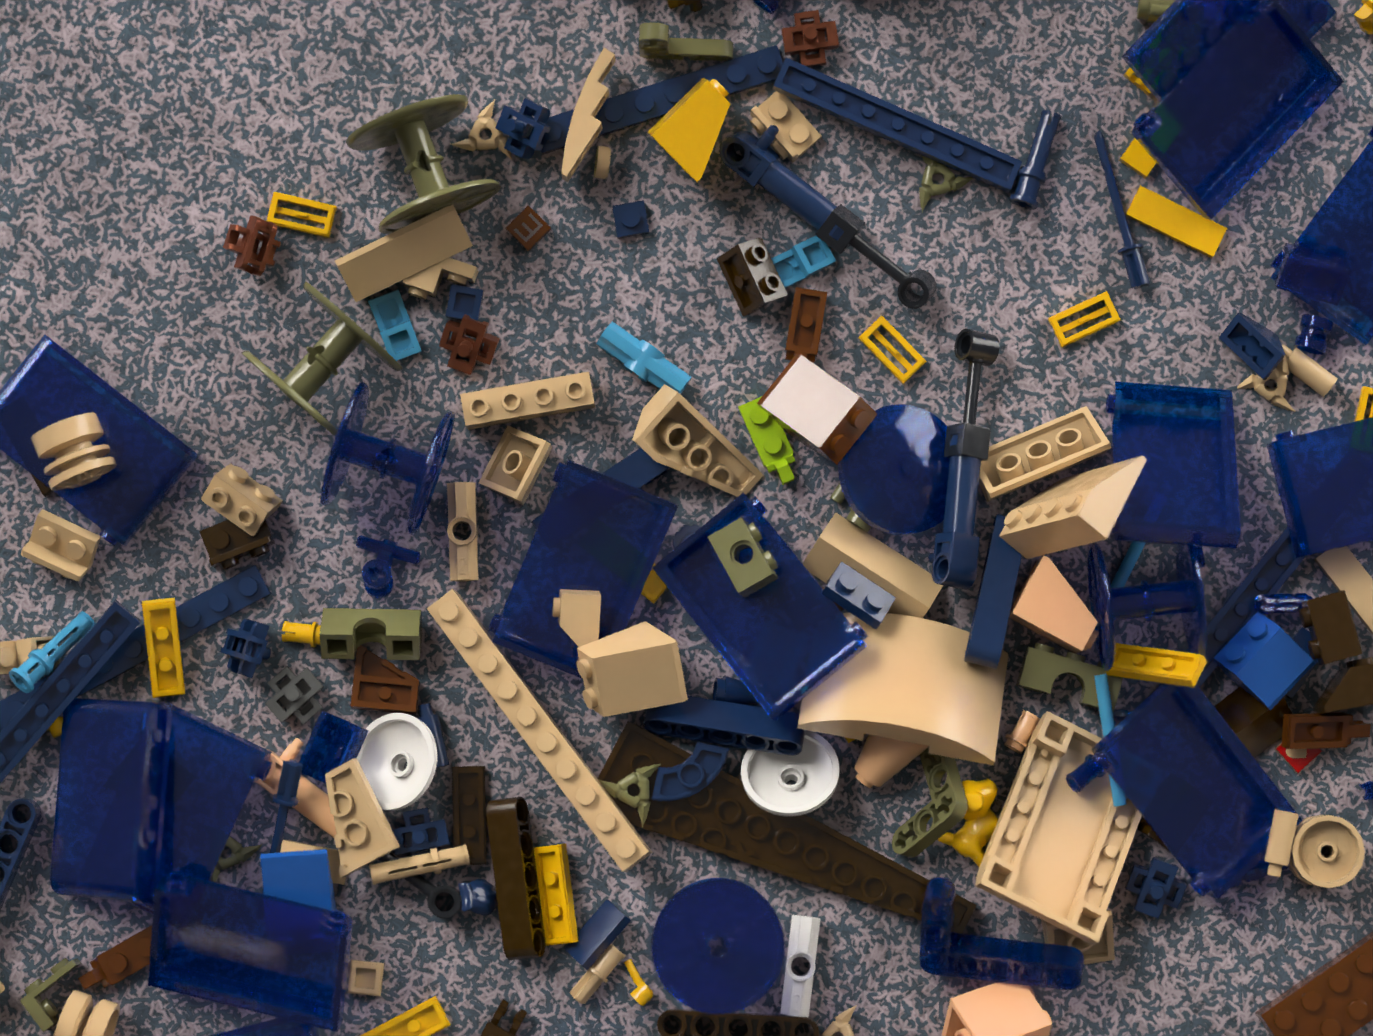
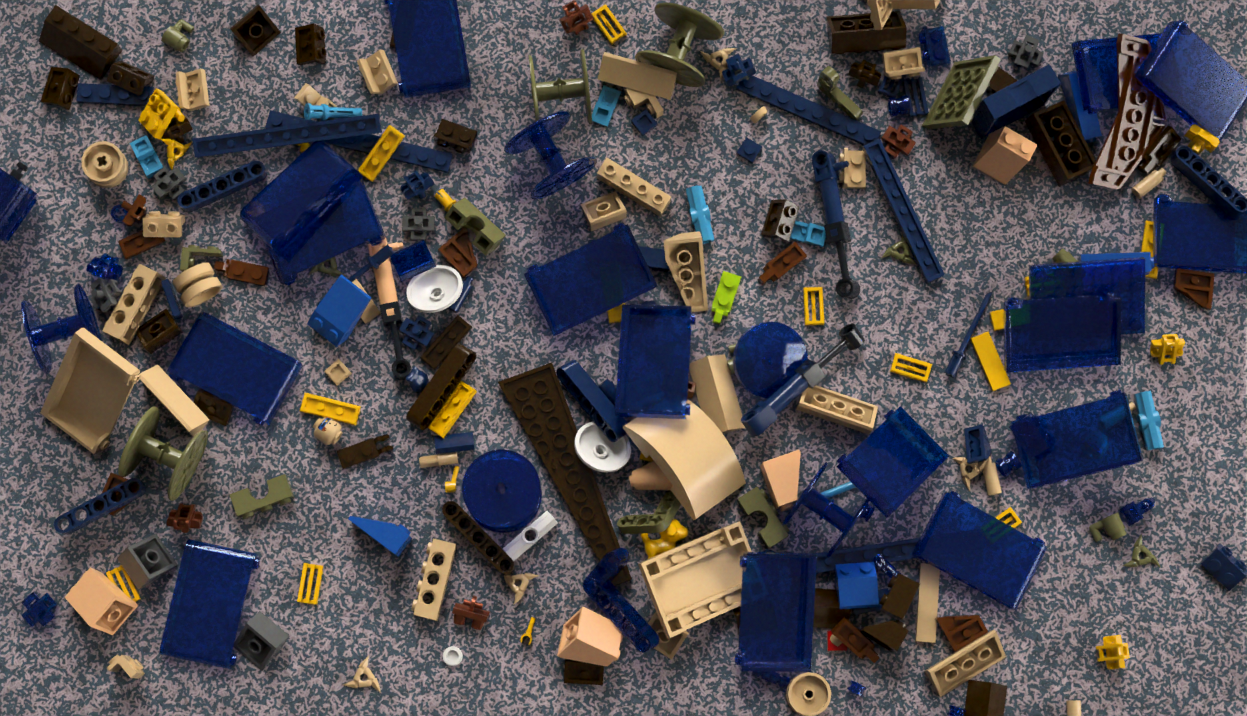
camera: 35 degrees right, 5 degrees down
(75, 457) = (419, 34): tan wheel -> none
(241, 498) = (472, 120): tan bracket -> none
(250, 950) = (299, 311): clear blue windscreen -> none
(358, 818) = (396, 300): tan wing -> none
(387, 551) = (502, 202): clear blue piece -> none
(419, 864) = (385, 331): tan pin -> none
(462, 509) = (562, 209): tan piece -> none
(466, 346) = (628, 141): copper piece -> none
(528, 228) = (701, 115): reddish brown tile -> none
(539, 731) = (509, 332): tan brick -> none
(578, 614) = (570, 298): tan slope -> none
(584, 126) = (764, 91): tan slope -> none
(631, 671) = (572, 339): tan slope -> none
(640, 801) = (527, 400): olive piece -> none
(691, 775) = (558, 410): dark blue tile -> none
(693, 126) = (811, 131): yellow slope -> none
(728, 545) = (666, 345): olive brick -> none
(817, 409) = (756, 299): slope -> none
(858, 595) = (701, 395): bracket -> none
(993, 600) = (764, 449): dark blue beam -> none
(1022, 732) = (717, 523): light nougat pin -> none
(1032, 173) = (944, 284): dark blue pin -> none
(1072, 510) = (827, 440): tan slope -> none
(1084, 774) = (730, 563): clear blue pin -> none
(1108, 724) = (763, 547): dark azure piece -> none
(1155, 890) = (716, 643): dark blue piece -> none
(1157, 665) = (805, 541): yellow tile -> none
(1280, 841) = (792, 670): tan cylinder -> none

